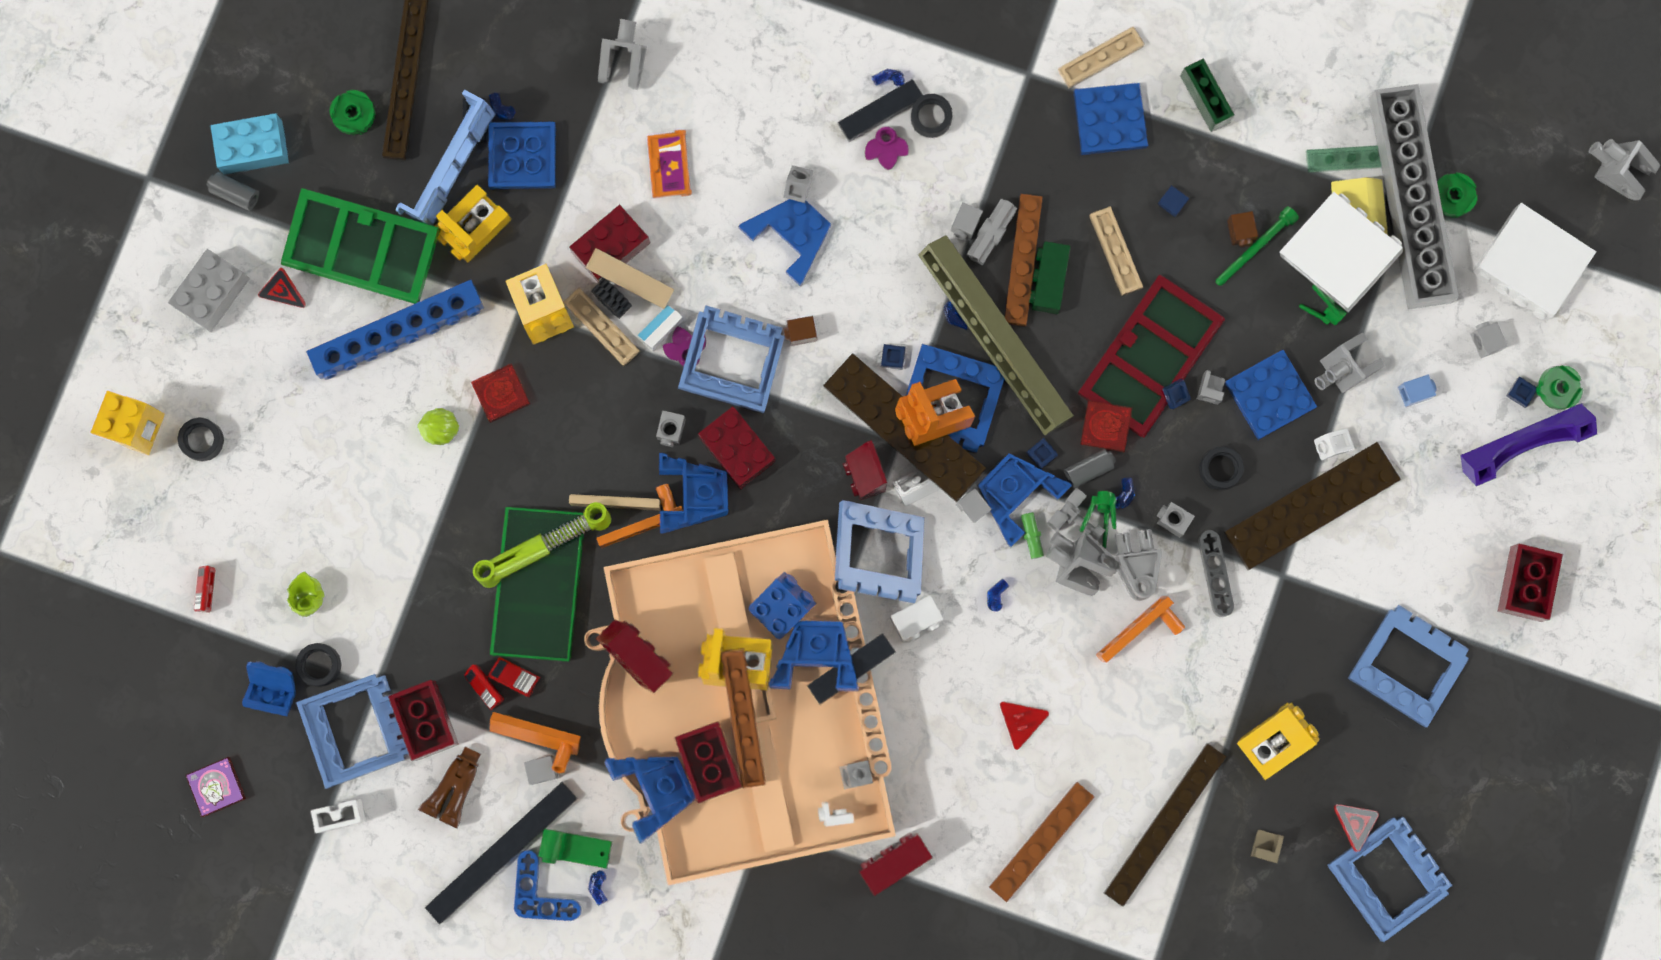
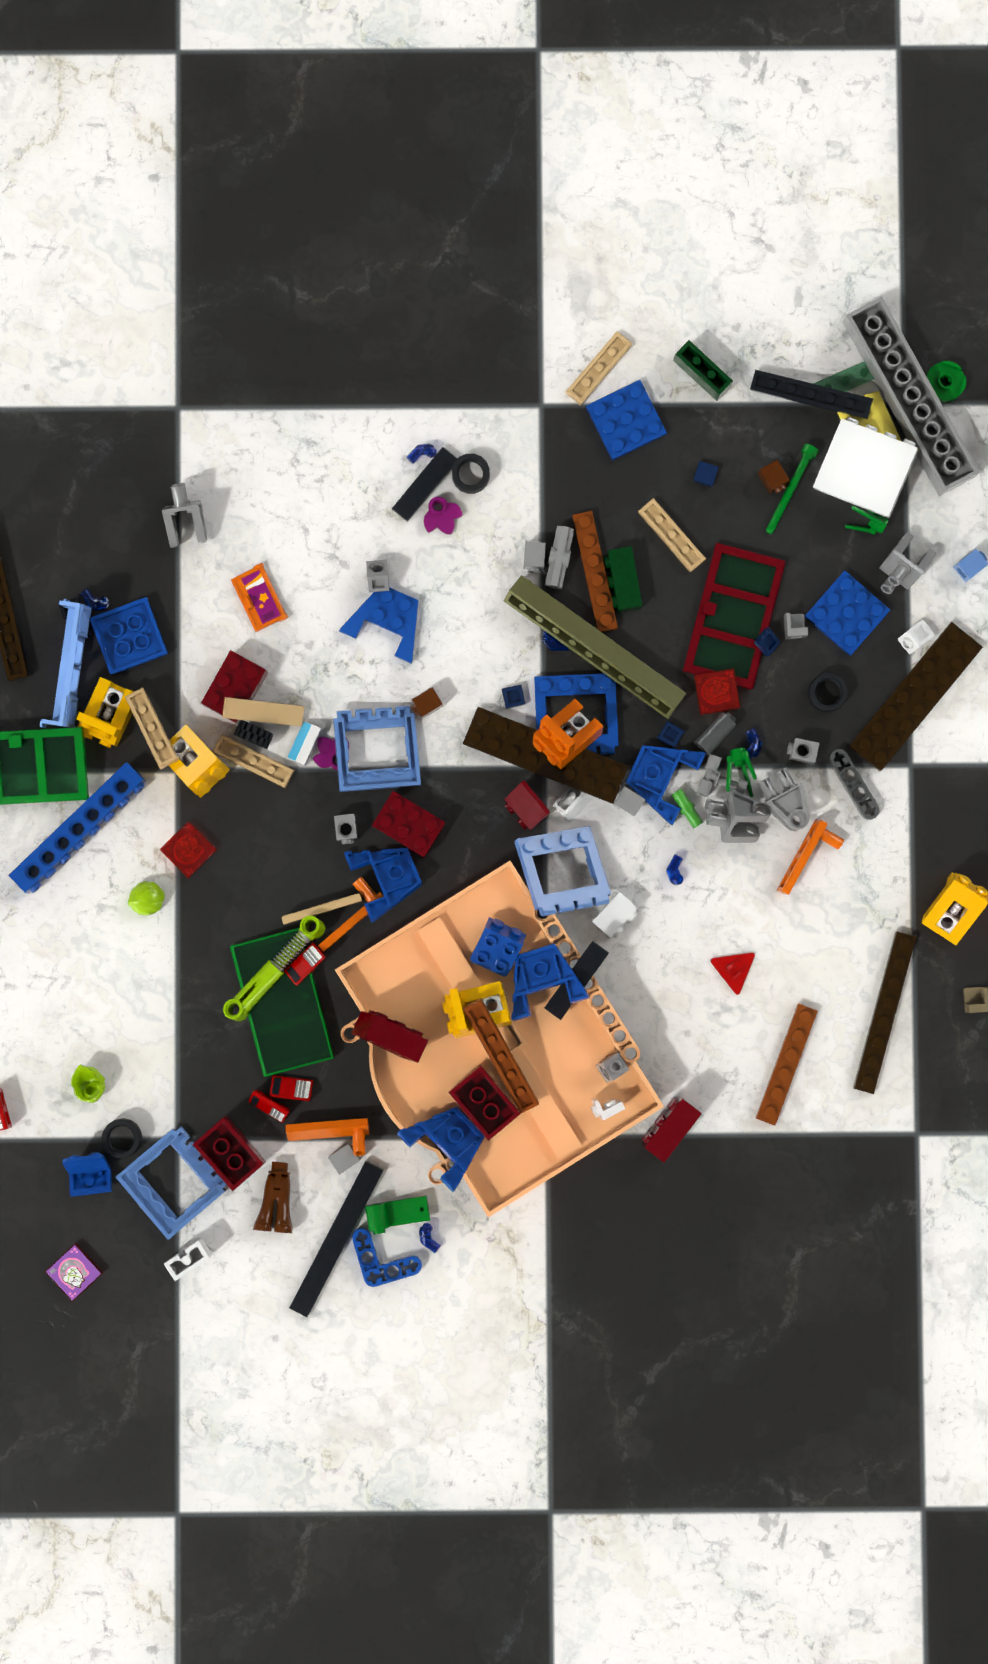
camera: 20 degrees left, 5 degrees up
(509, 254) = (151, 728): none -> tan tile
(576, 552) = (305, 964): none -> slope
(1311, 158) = (811, 394): none -> black plate

